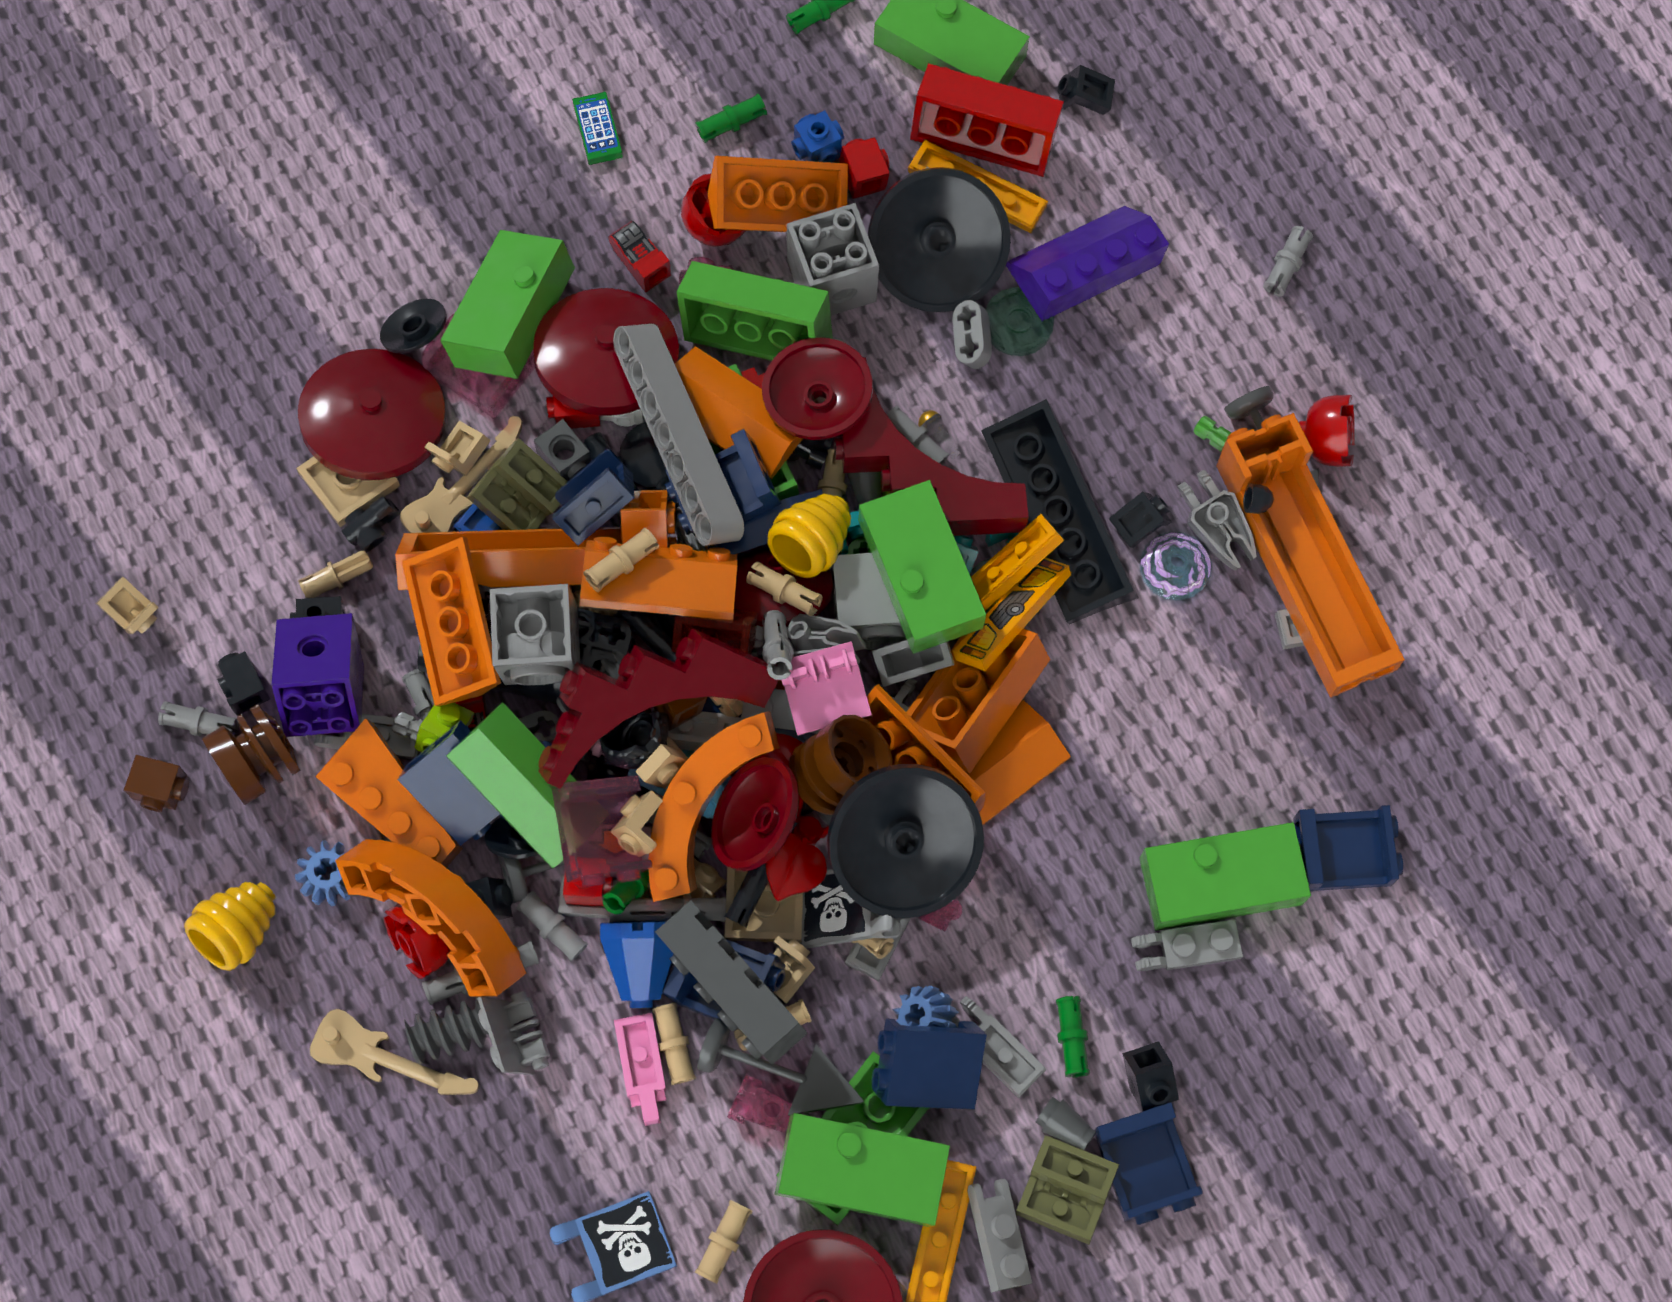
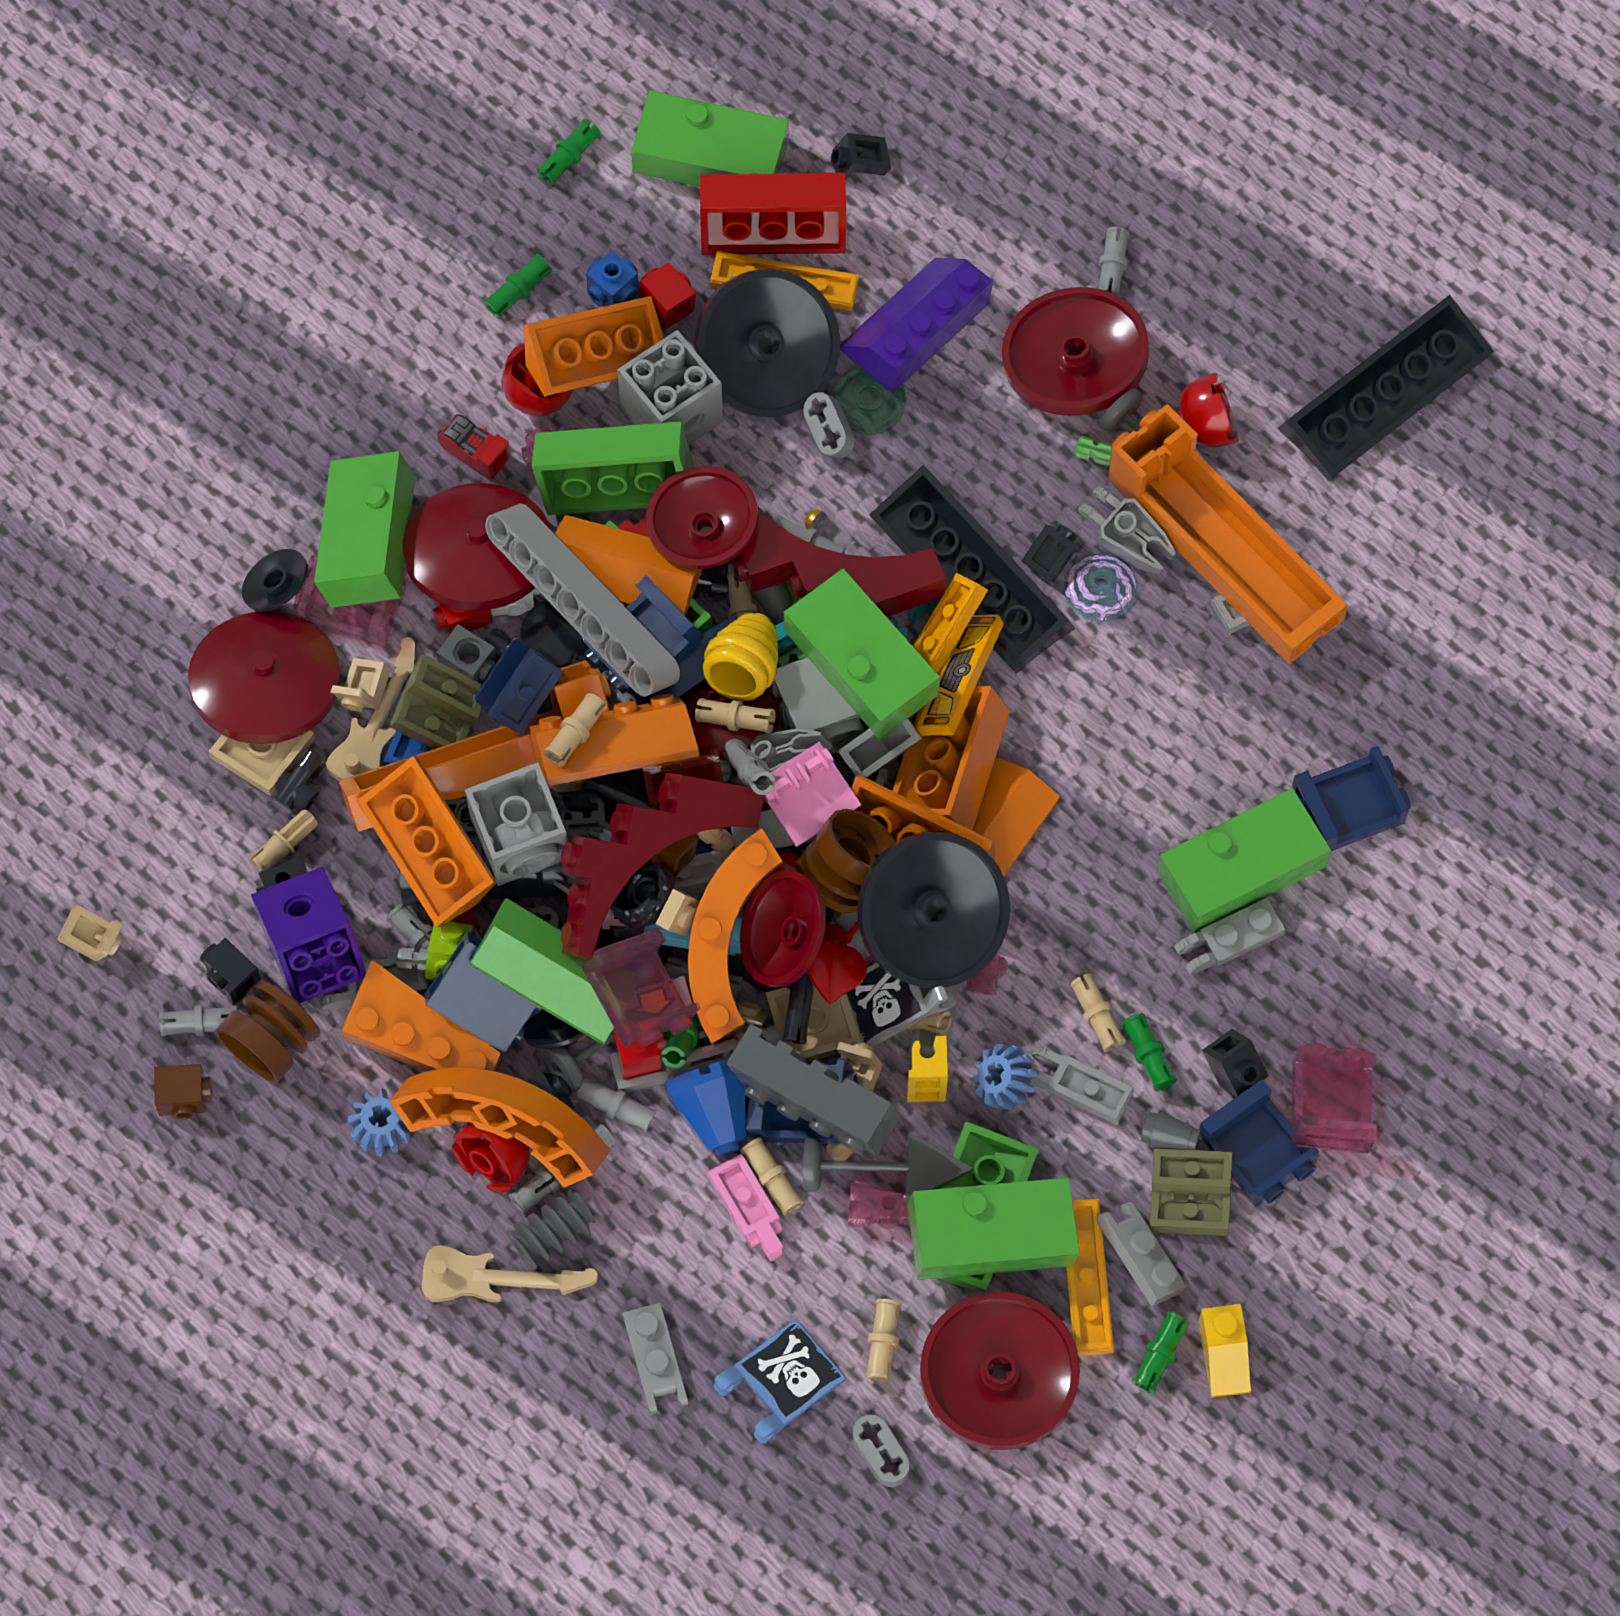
camera: 15 degrees left, 5 degrees down
(231, 924) = (305, 1197): yellow piece -> none
(504, 1183) = (654, 1354): none -> light grey hinge
(509, 1049) = (610, 1201): light grey hinge -> none
(597, 128) = (386, 335): tile -> none
(635, 815) = (668, 978): tan bracket -> none
(853, 997) = (928, 1075): none -> yellow hinge
(929, 1065) = (1023, 1113): dark blue panel -> none
(1036, 981) = (1097, 1012): none -> tan pin
(1225, 333) = (1075, 351): none -> dark red dish
(1233, 1141) = (1333, 1098): none -> clear pink panel
(1257, 498) = (1159, 495): black hinge -> none
(1510, 457) = (1387, 388): none -> black arch

